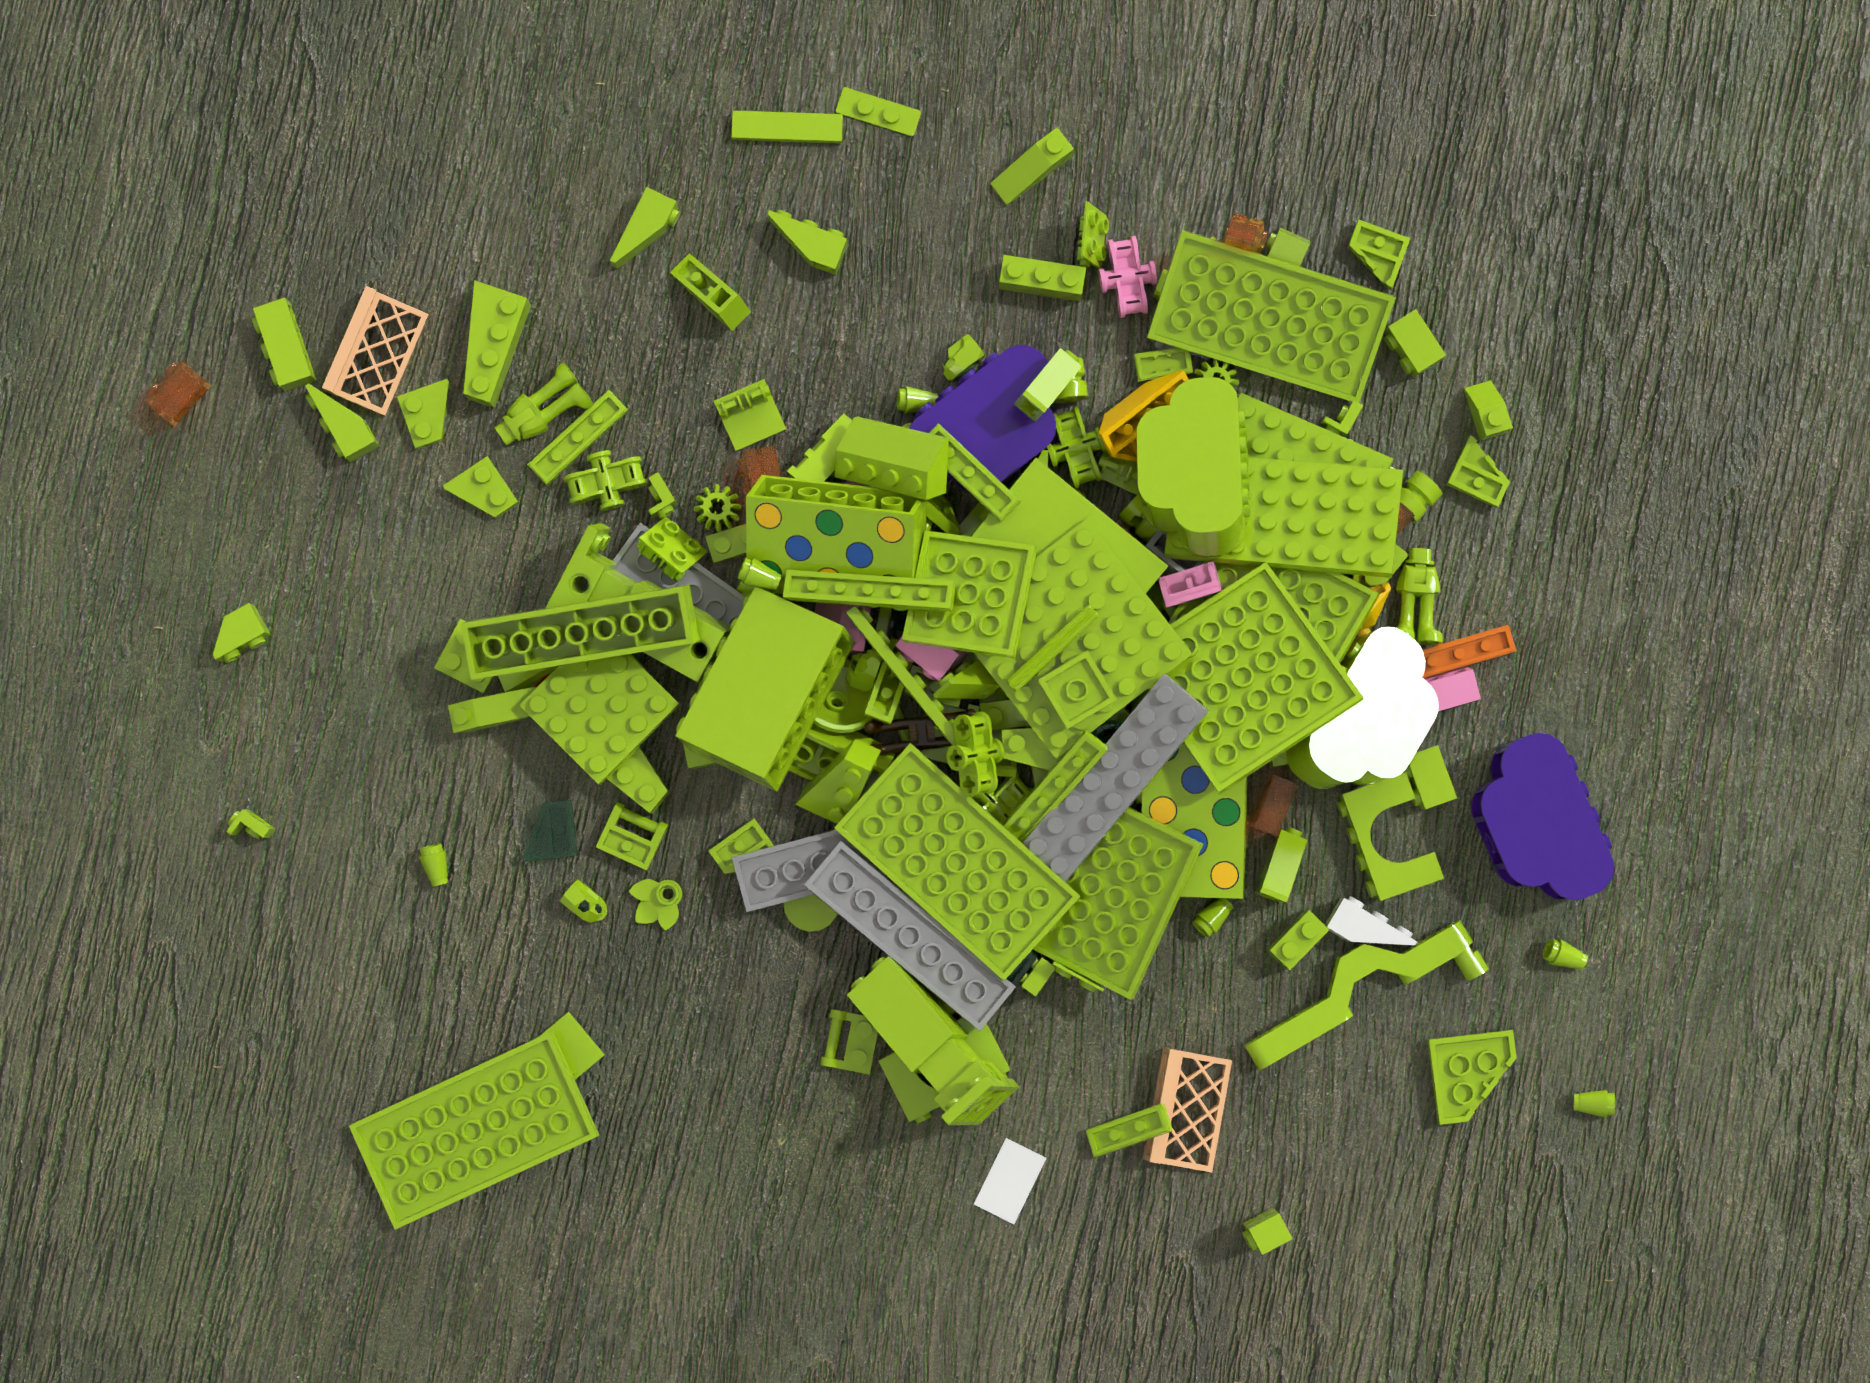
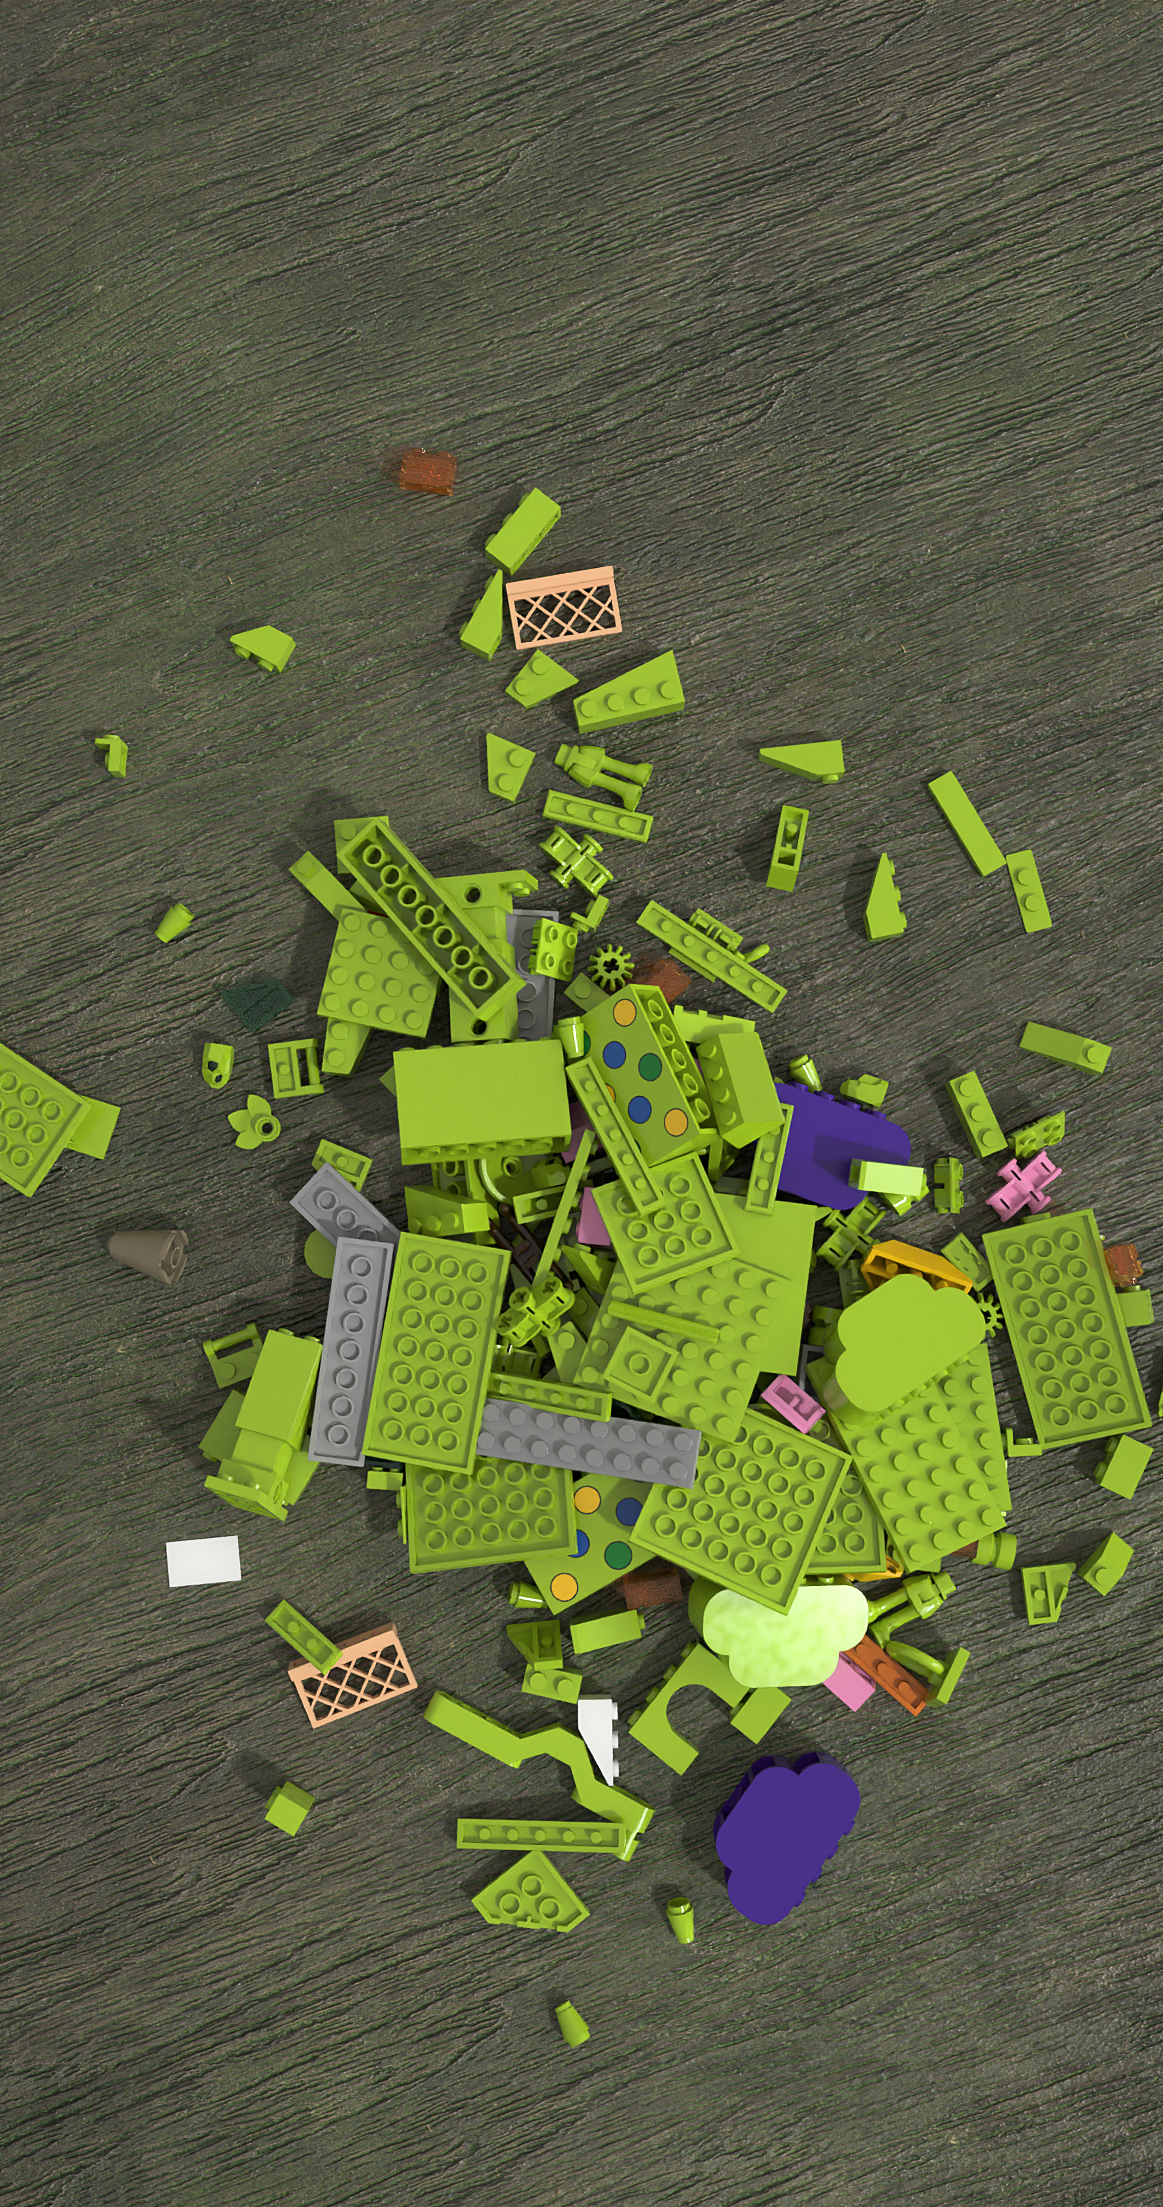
camera: 65 degrees right, 0 degrees up
(712, 1060) = (151, 1252): none -> dark tan cone
(764, 416) = (711, 957): none -> lime plate
(785, 375) = (755, 954): none -> lime piece
(1097, 343) = (949, 1174): none -> lime hinge
(1258, 931) = (538, 1643): none -> lime wing
(1421, 1029) = (541, 1835): none -> lime plate
(1495, 605) = (939, 1673): none -> lime tile

